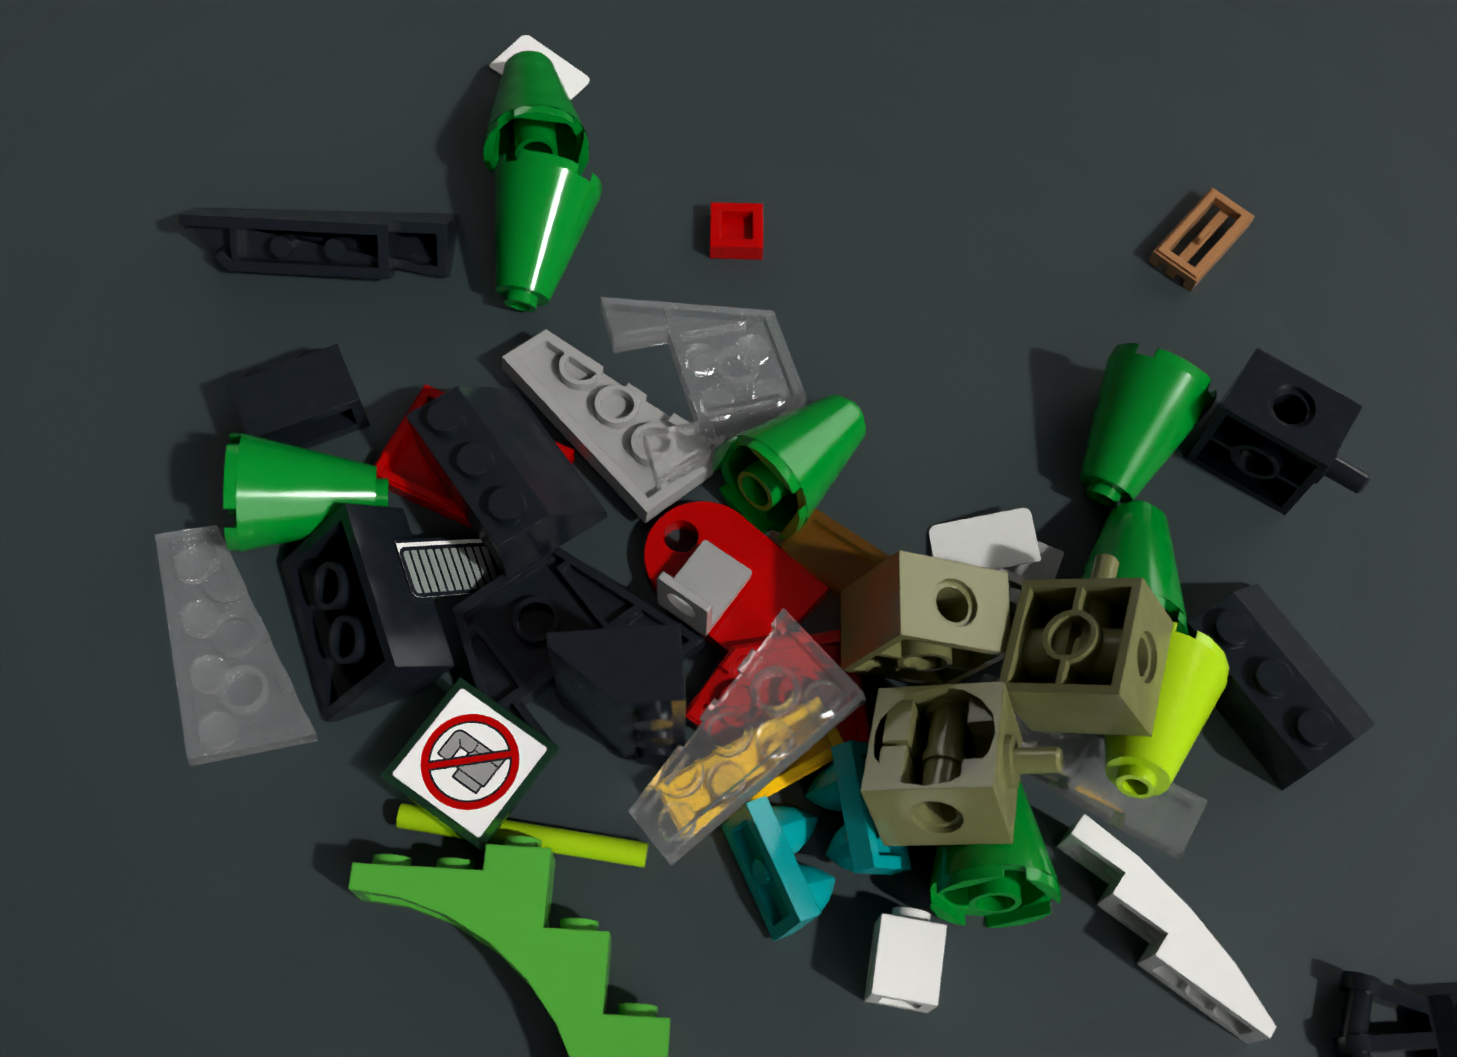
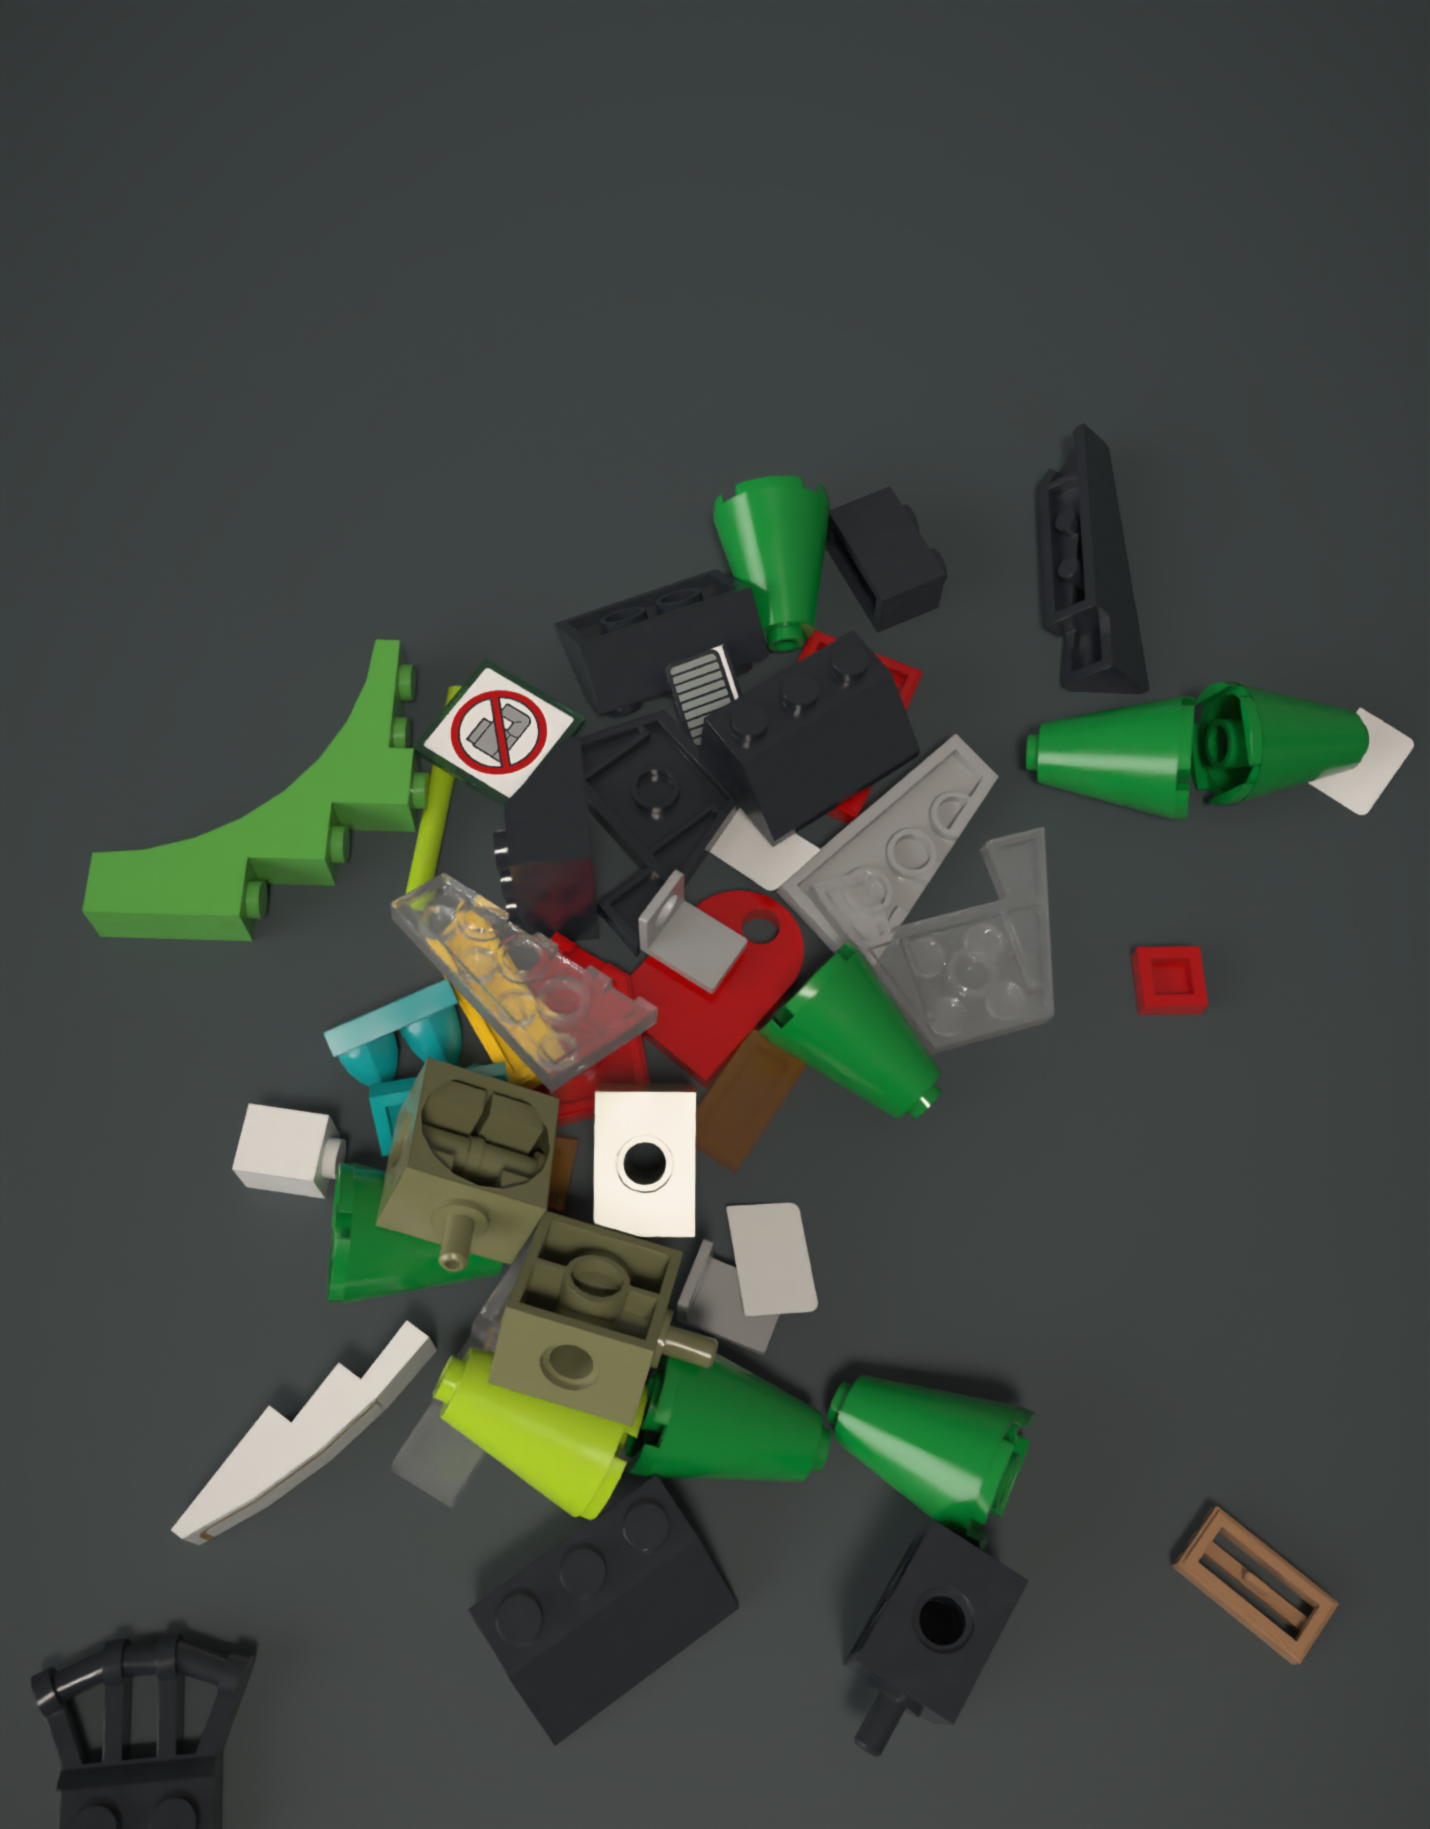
camera: 90 degrees right, 0 degrees up
(225, 666) = (609, 530): clear wing -> none
(613, 536) = (753, 856): none -> white sticker

